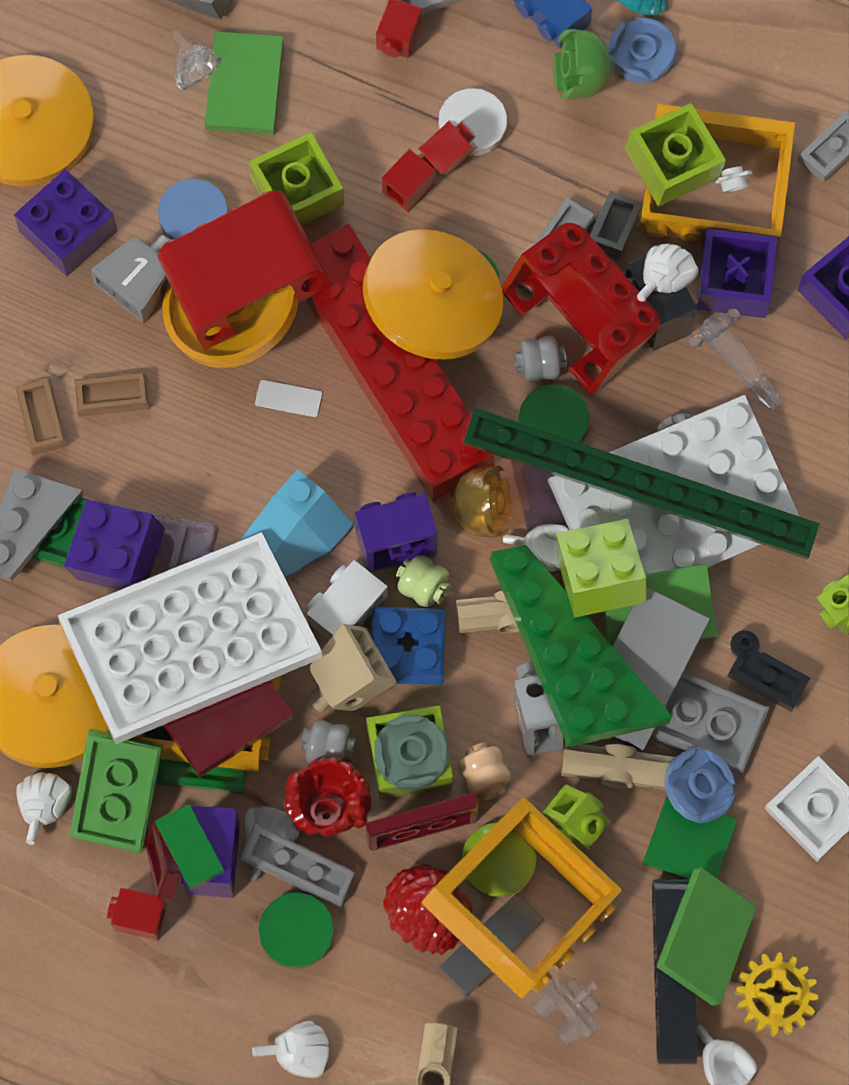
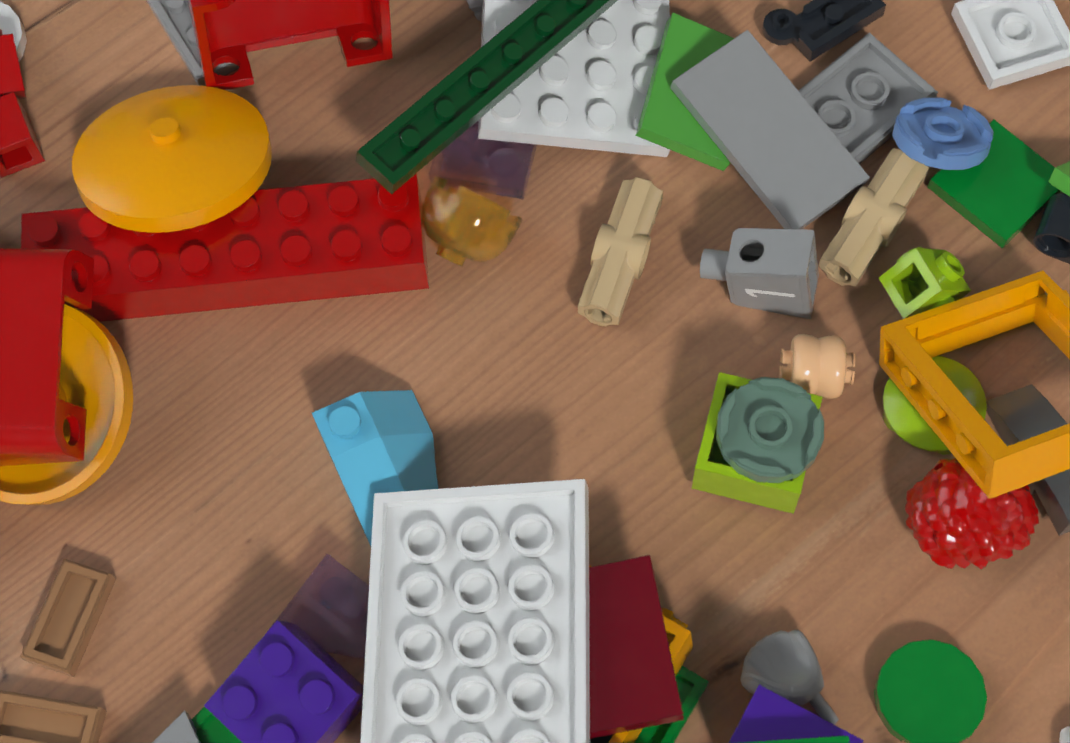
camera: 60 degrees left, 5 degrees down
(288, 398) = (201, 399): white sticker -> none
(297, 865) = (846, 651): light grey tile -> none
(327, 741) = (696, 540): light grey piece -> none
(328, 797) = (772, 555): red hair -> none
(347, 600) = (516, 435): white brick -> none
(349, 671) = (621, 467): tan torso -> none
(395, 531) = (456, 332): dark purple brick -> none
(421, 822) = (860, 464): dark red tile -> none
(423, 581) = (533, 333): yellowish green piece -> none
(425, 628) = (621, 416): blue brick -> none
(540, 359) = (319, 87): light grey piece -> none
(541, 542) = (556, 180): white piece -> none
(556, 411) = (387, 95): green tile -> none
(580, 671) = (752, 189): green wing -> none
(601, 568) = (632, 109): lime brick -> none

